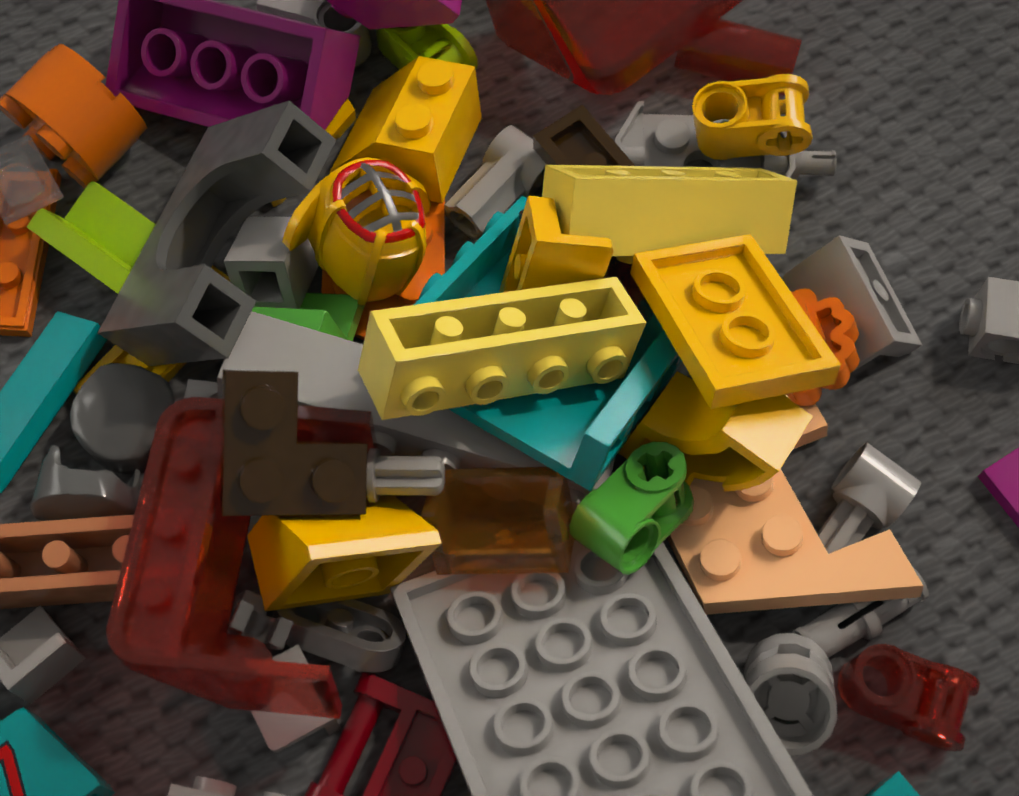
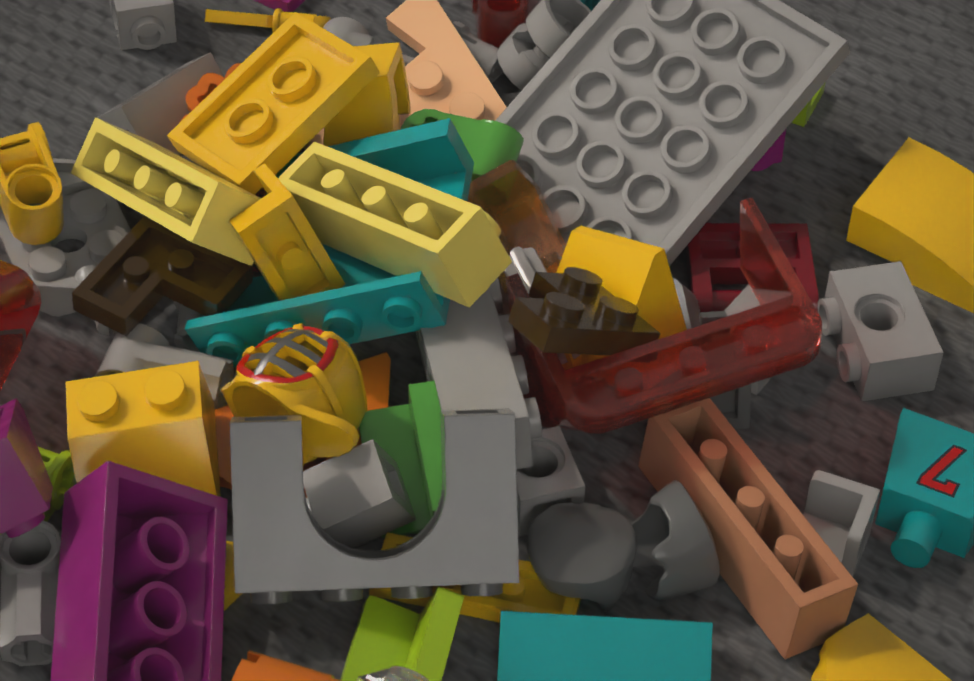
camera: 115 degrees left, 20 degrees down
(965, 453) = (259, 20): none -> yellow piece

